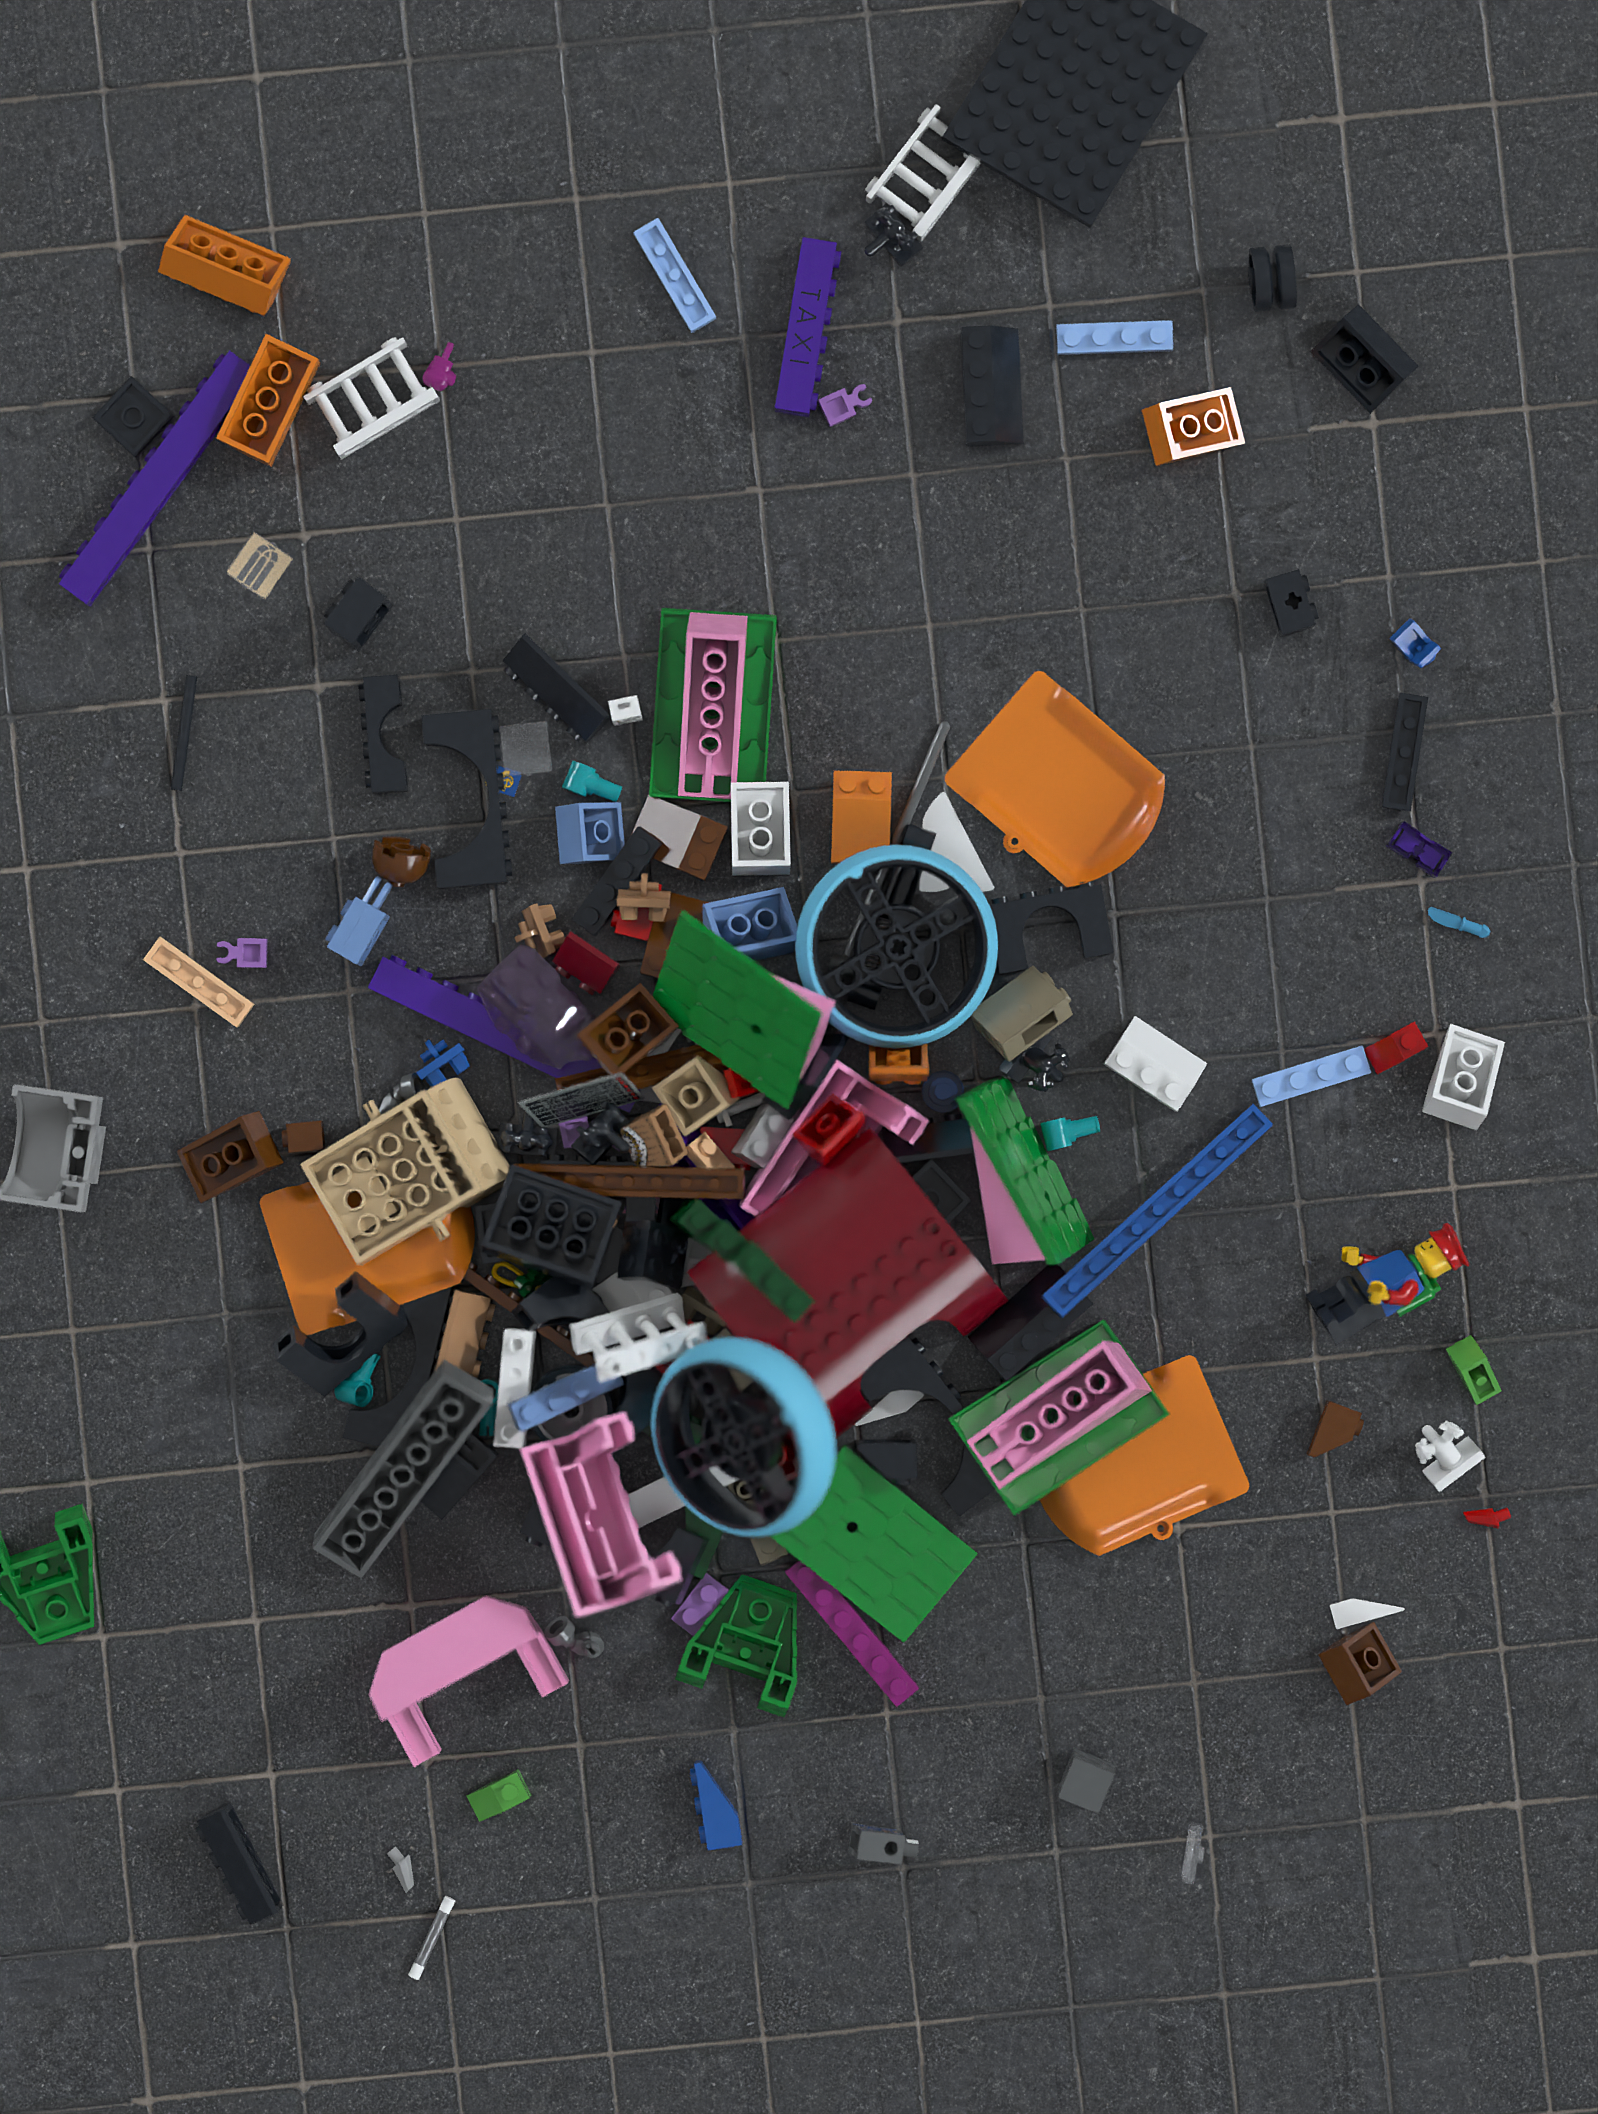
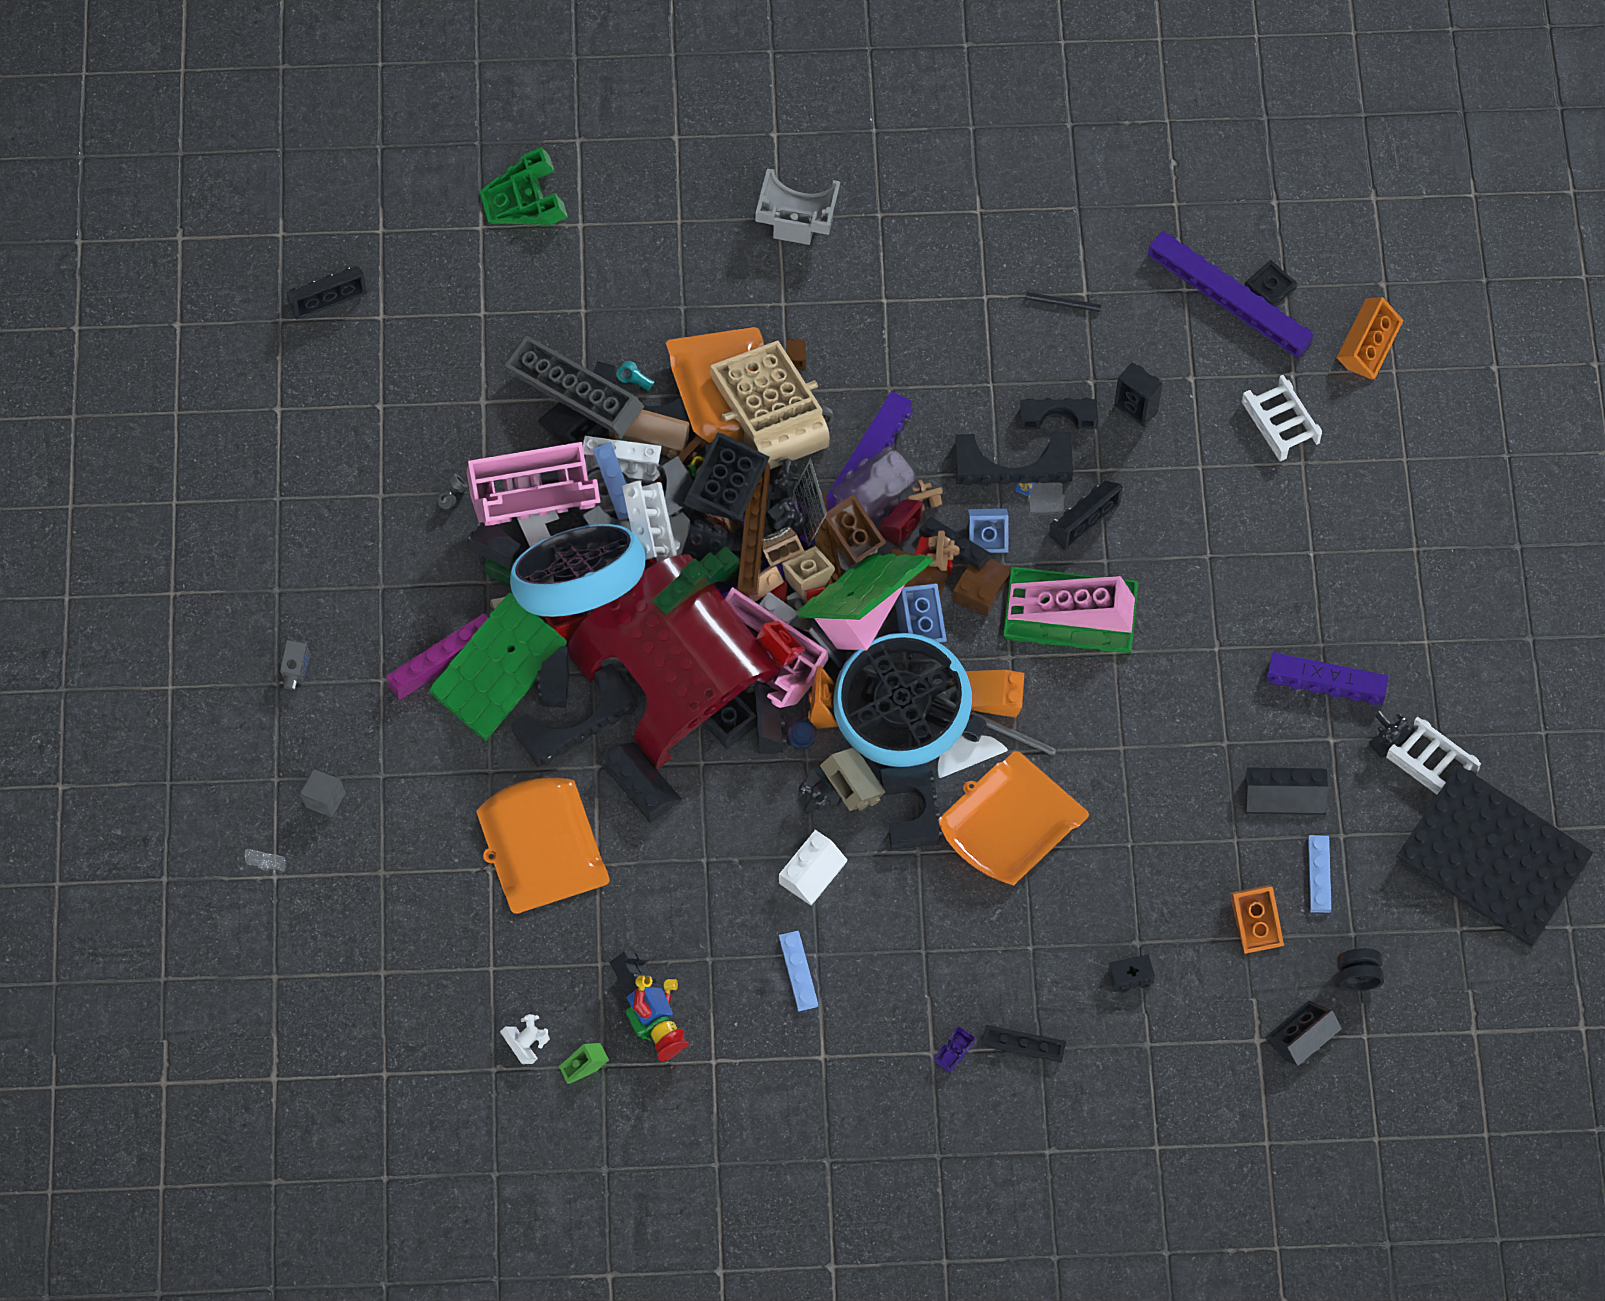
camera: 85 degrees right, 25 degrees down
(198, 982) = (900, 300): light nougat plate -> none
(230, 1156) = (786, 312): reddish brown slope -> none
(248, 952) = (918, 328): medium lavender plate -> none
(259, 565) = (1172, 350): clear piece -> none
(268, 400) = (1280, 355): orange slope -> none
(328, 1366) = (645, 354): black arch -> none
(360, 925) = (932, 389): medium blue brick -> none
(399, 861) = (975, 416): reddish brown cylinder -> none
(402, 1868) = (312, 386): light grey bar -> none
(431, 1937) = (265, 401): flat silver bar -> none
(439, 371) = (1299, 459): magenta piece -> none
(450, 1652) = (450, 409): bright pink wedge -> none
(454, 1057) = (843, 434): blue hips -> none
(499, 1795) = (354, 445): bright green slope -> none
(583, 781) = (1022, 528): teal pin -> none
(625, 710) = (1069, 552): white piece -> none
(674, 275) = (1363, 601): light blue plate -> none
(700, 1604) = (467, 569): medium lavender plate -> none
(719, 1816) = (326, 570): blue slope -> none
(751, 1635) = (445, 597): green wedge -> none
(760, 828) = (986, 629): white slope -> none
(840, 406) = (1274, 697): medium lavender plate -> none
(892, 1404) = (591, 695): white sticker -> none
(1020, 1187) = (742, 769): green piece -> none
(1040, 1434) = (573, 788): piece -> none
(1062, 1132) = (769, 807): teal pin -> none
(1157, 1211) = (711, 858): blue plate -> none
(1334, 1428) = (551, 968): reddish brown slope -> none
(1357, 1611) = (421, 980): white sticker -> none
(1360, 1663) = (385, 976): reddish brown slope -> none
(1395, 1048) = (815, 1027): red slope -> none
(1415, 644) = (1100, 1053): blue bracket -> none
(1456, 922) = (901, 1073): dark azure piece -> none
(1464, 1077) = (791, 1068): white slope -> none
(1487, 1517) = (479, 1068): red bar -> none

